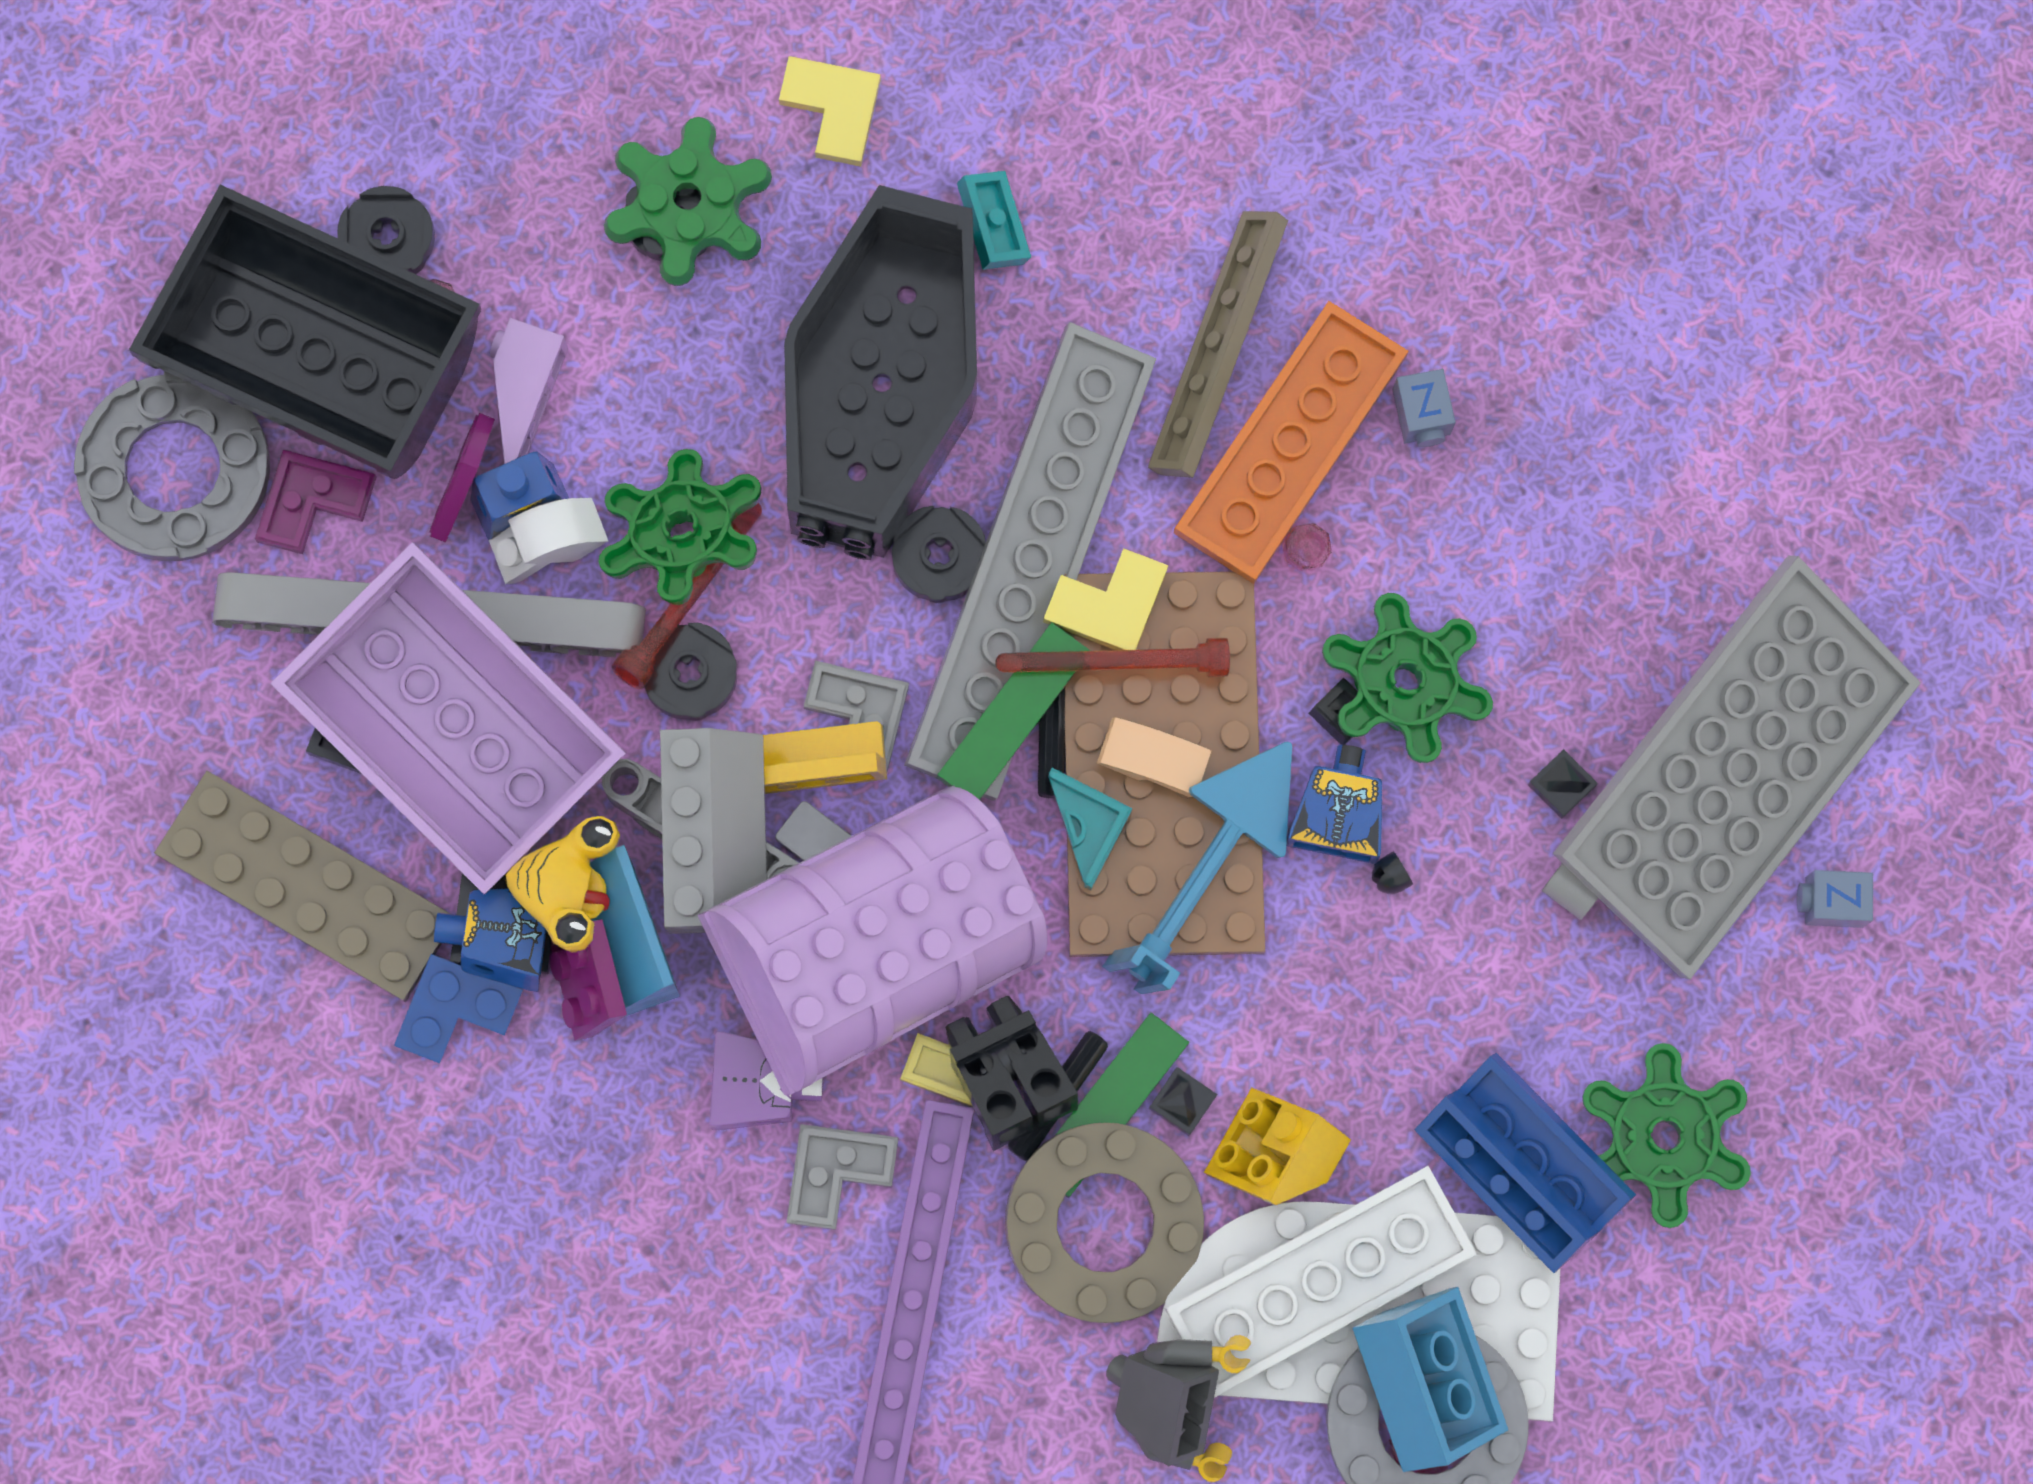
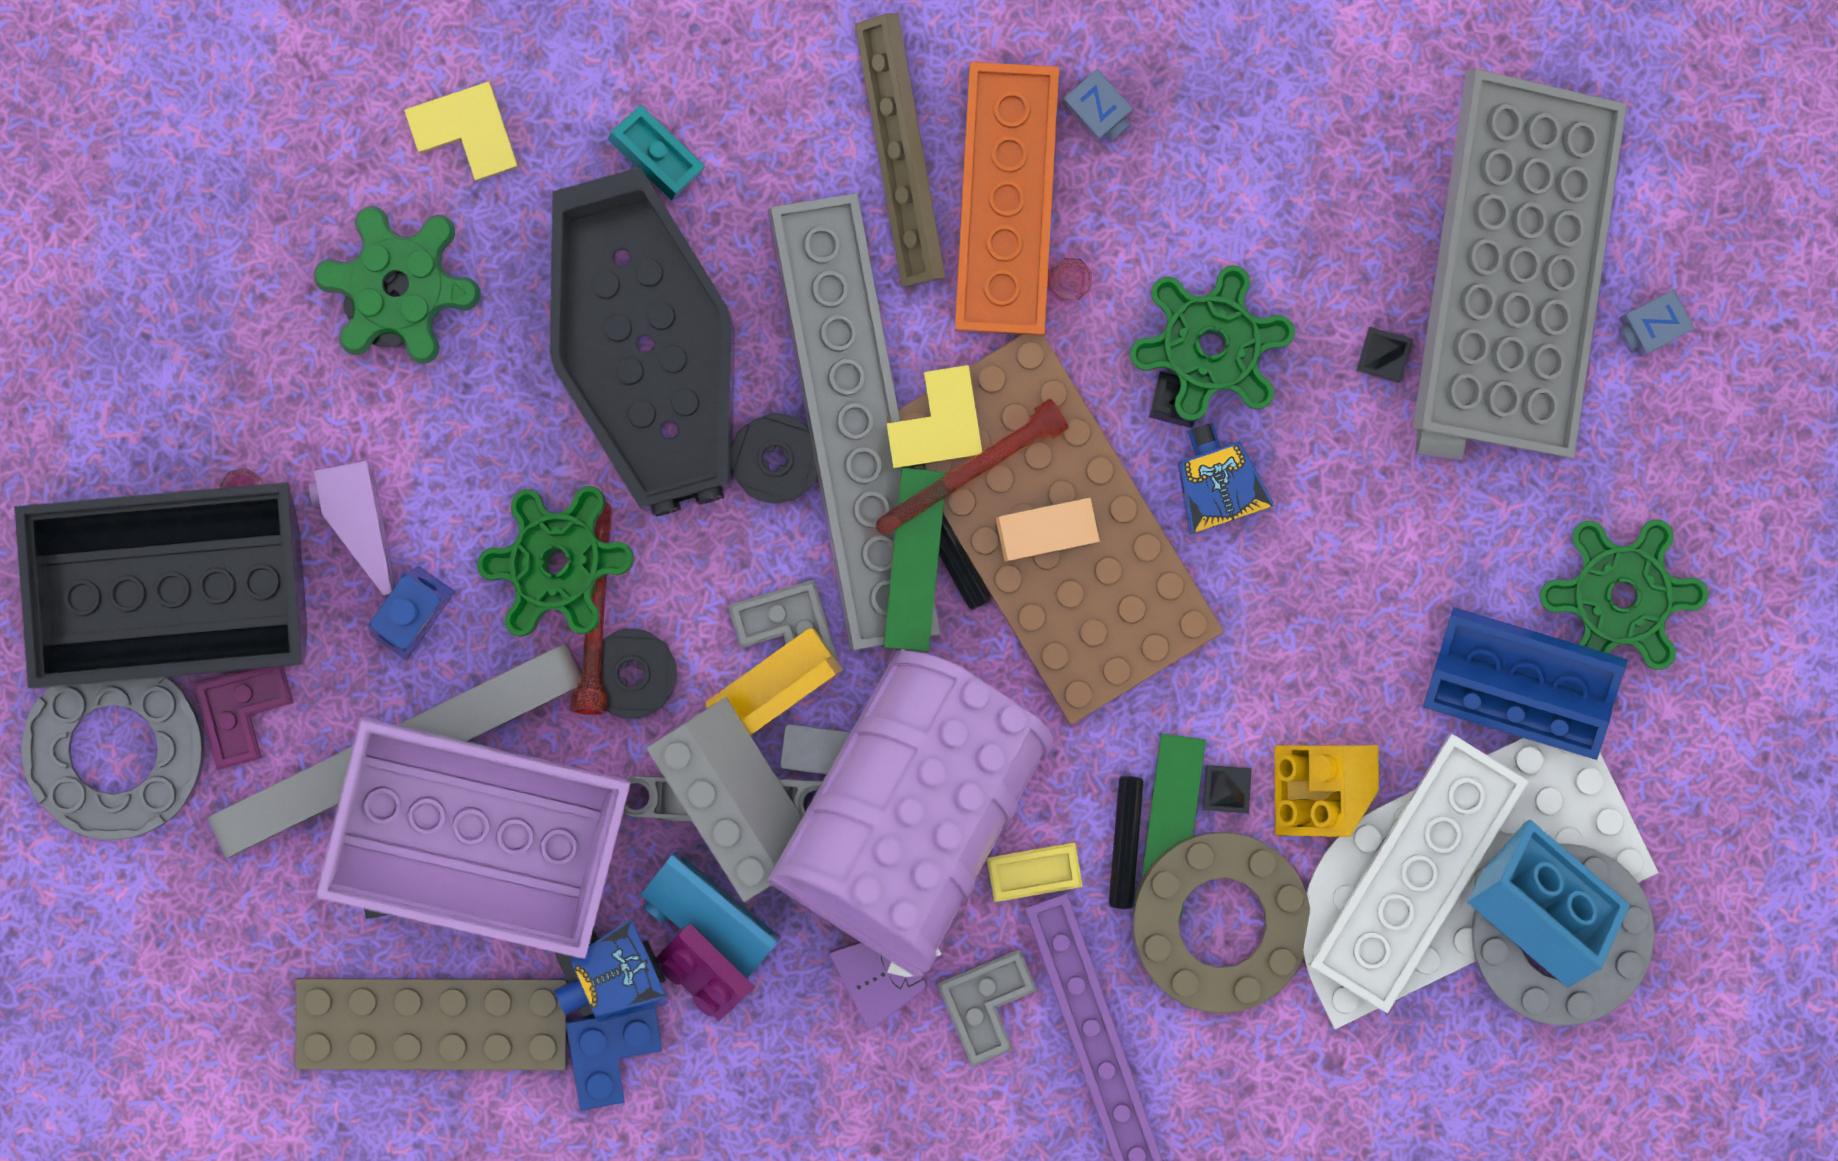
camera: 20 degrees left, 10 degrees up
(404, 213) = (173, 430): black plate -> none
(462, 477) = (356, 623): magenta tile -> none
(547, 535) = (454, 632): white brick -> none
(562, 887) = (643, 917): yellow head -> none
(998, 1058) = (1067, 841): black hips -> none
(1090, 821) = (1026, 610): teal tile -> none
(1170, 1399) = (1353, 1032): dark grey torso -> none
(1252, 803) = (1146, 520): dark azure piece -> none
(1390, 875) = (1289, 511): black hinge -> none

